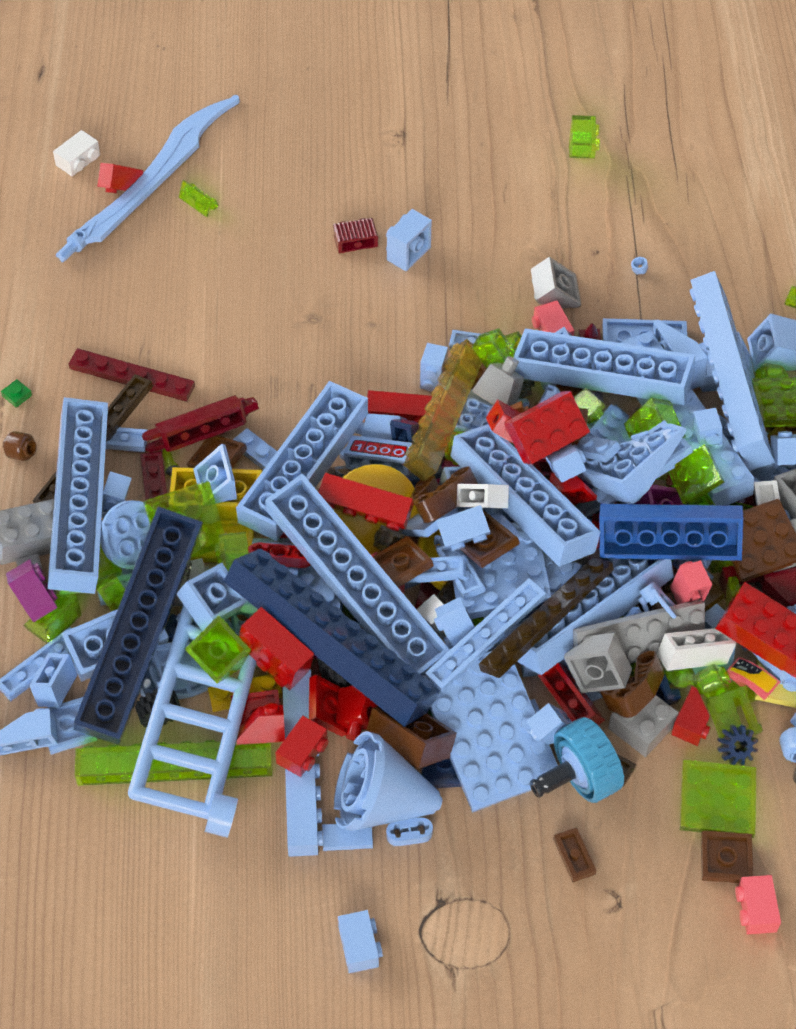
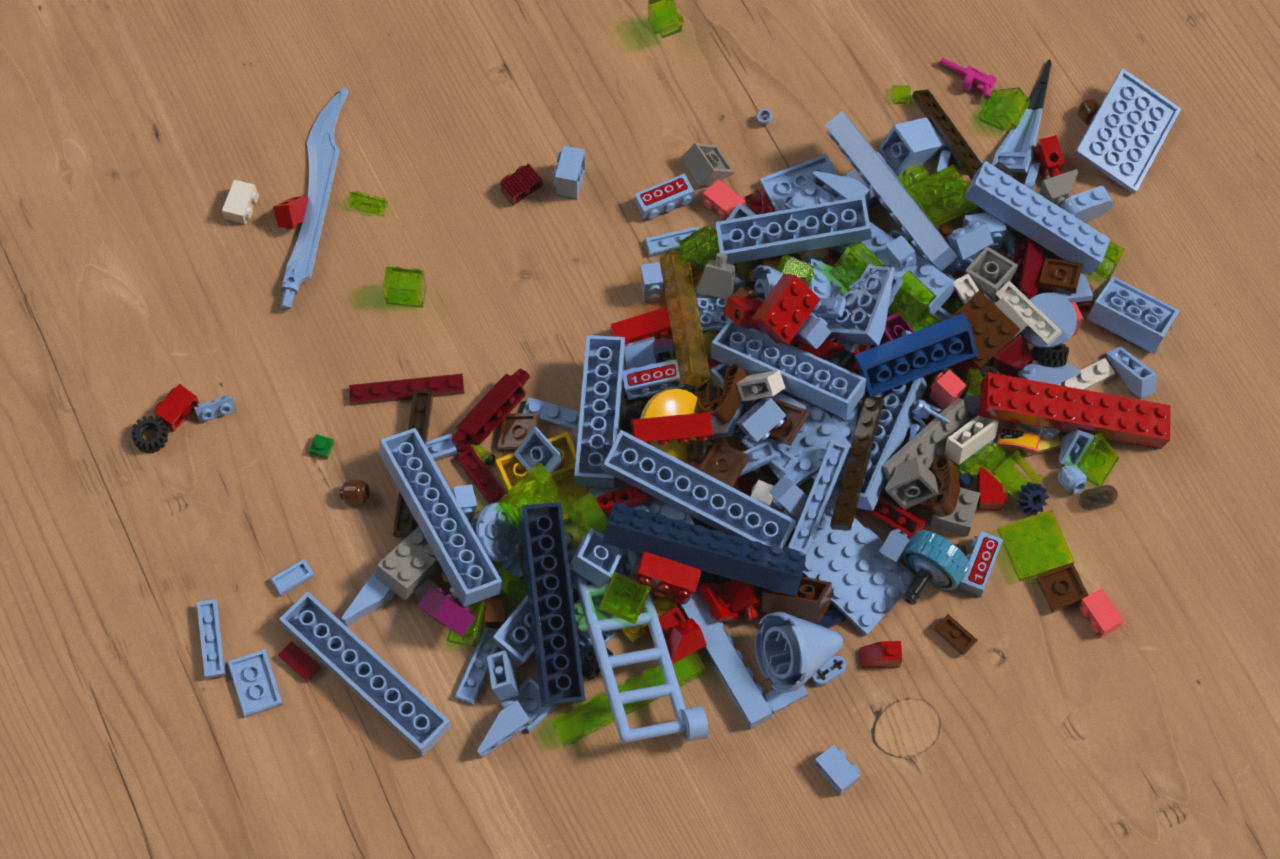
camera: 25 degrees left, 10 degrees up
(85, 612) = (495, 612): none -> dark orange brick
(183, 279) = (404, 286): none -> clear neon green brick
(302, 746) = (723, 644): red brick -> none
(477, 839) = (881, 655): none -> red slope
(493, 299) = (664, 197): none -> light blue brick
(643, 790) = (981, 563): none -> brick

